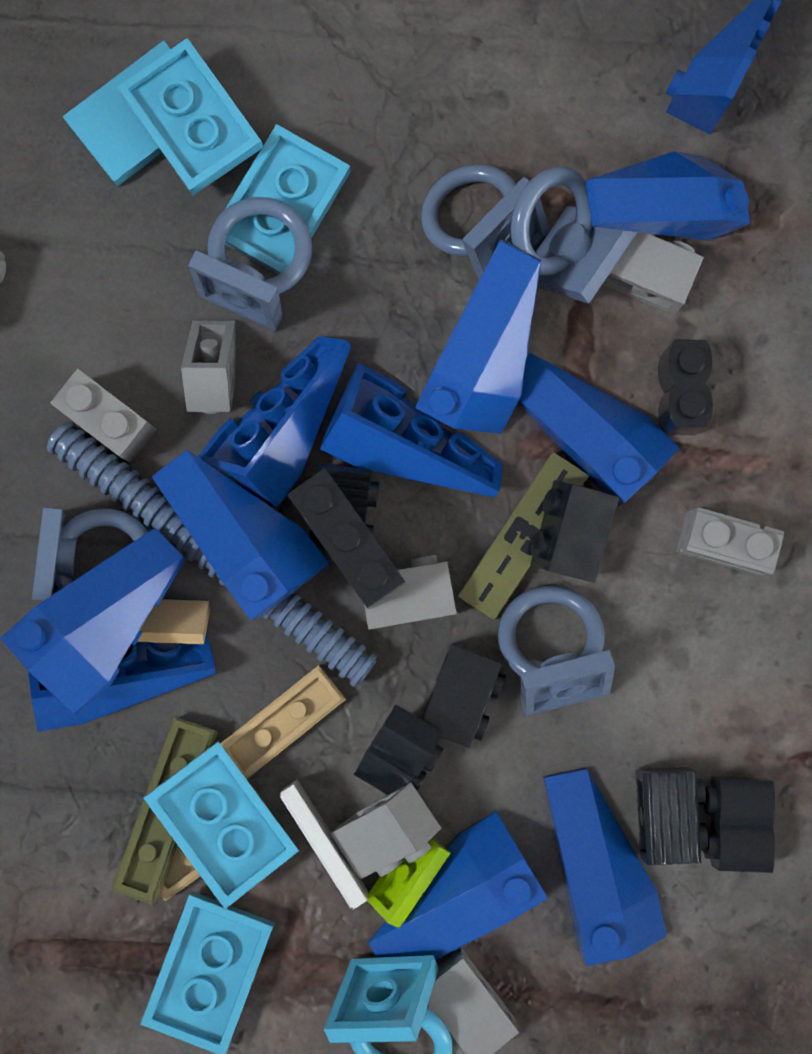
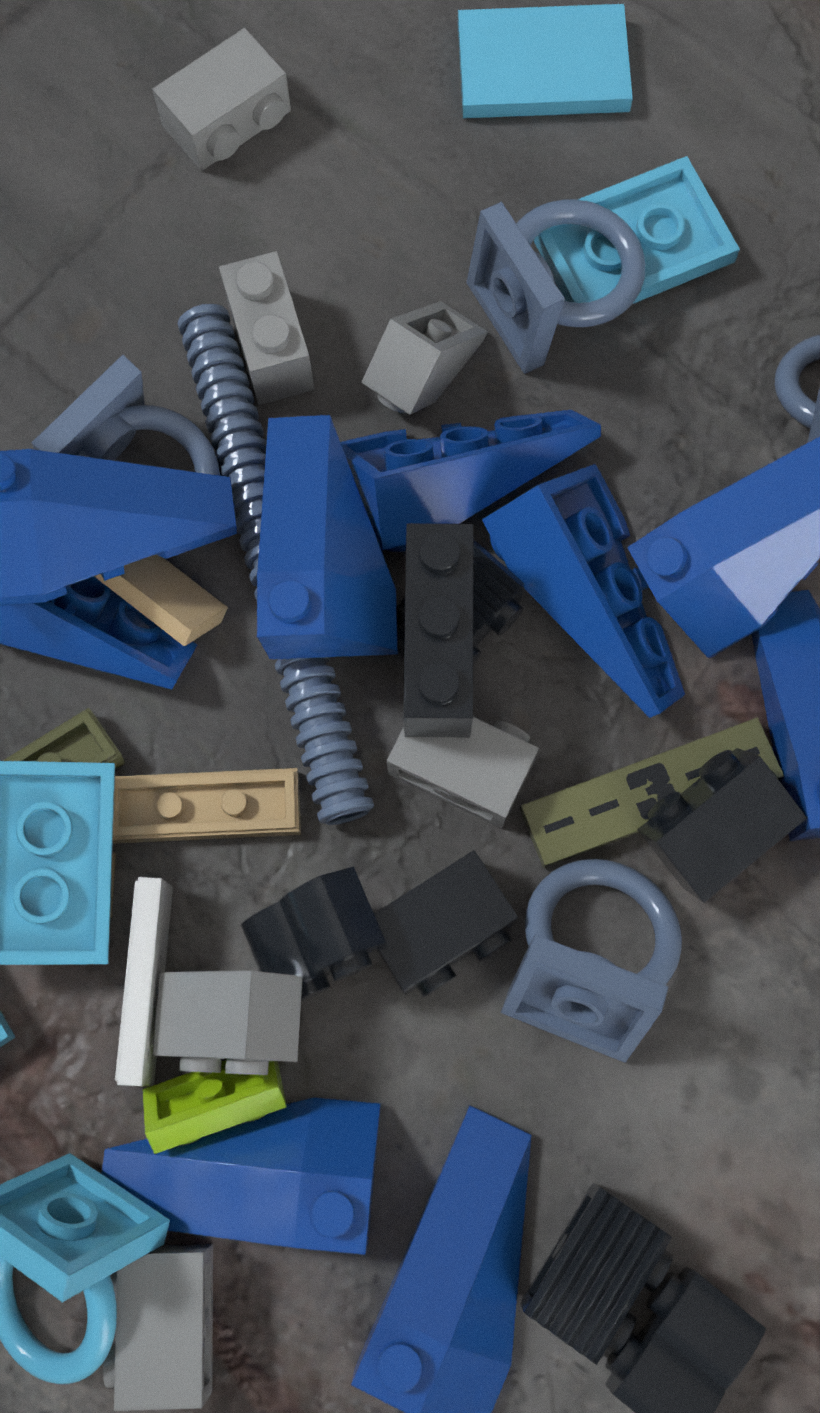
camera: 40 degrees right, 10 degrees down
(190, 116) = (596, 88): medium azure plate -> none

